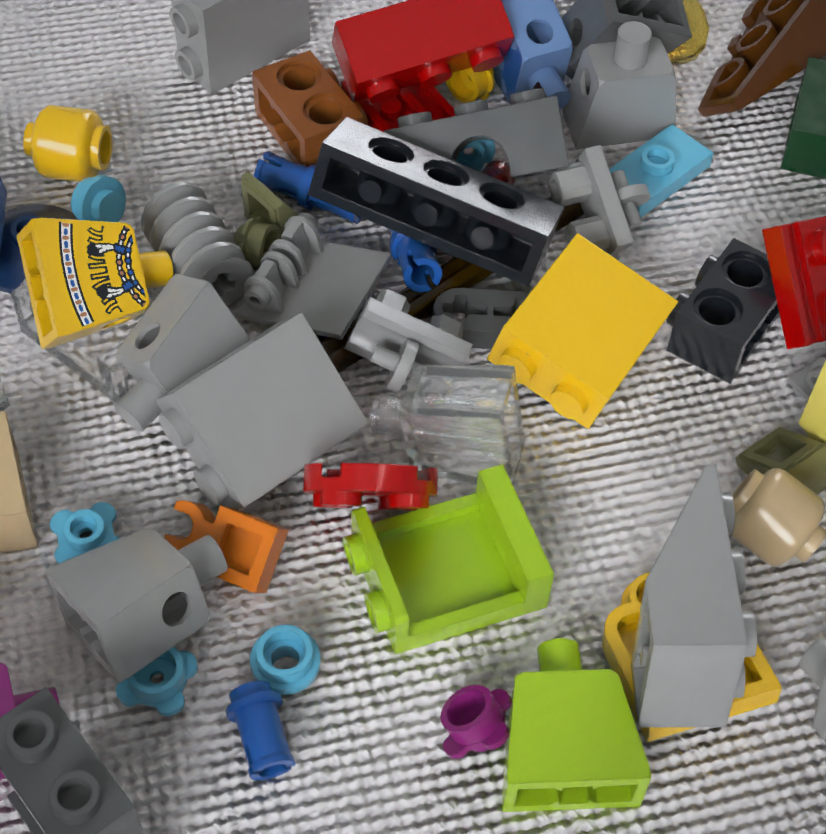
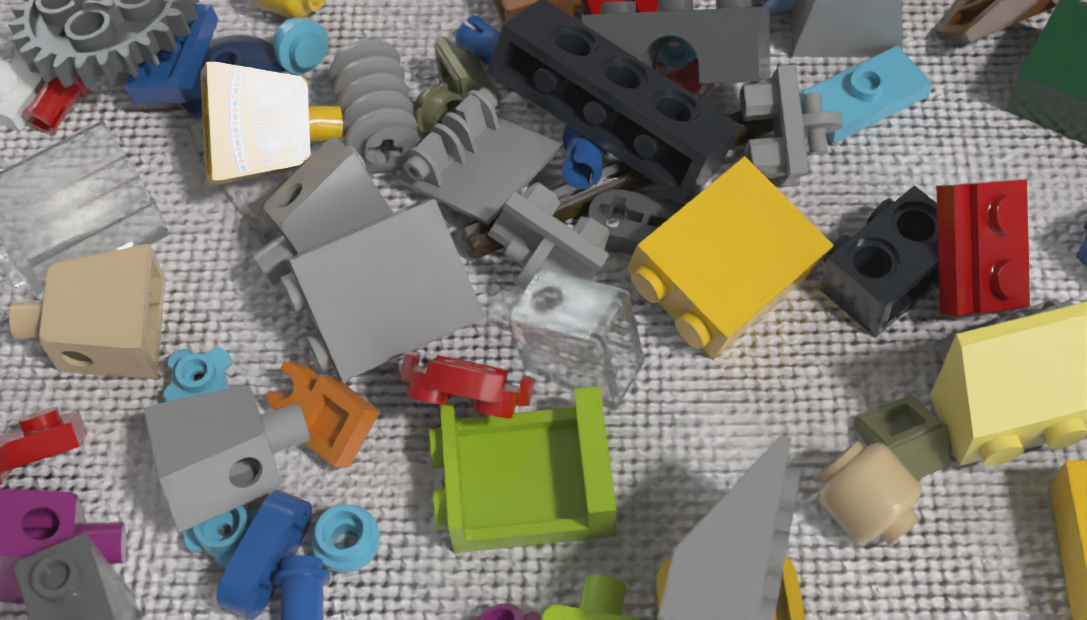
camera: 20 degrees right, 5 degrees up
(208, 690) = (271, 537): none -> blue beam

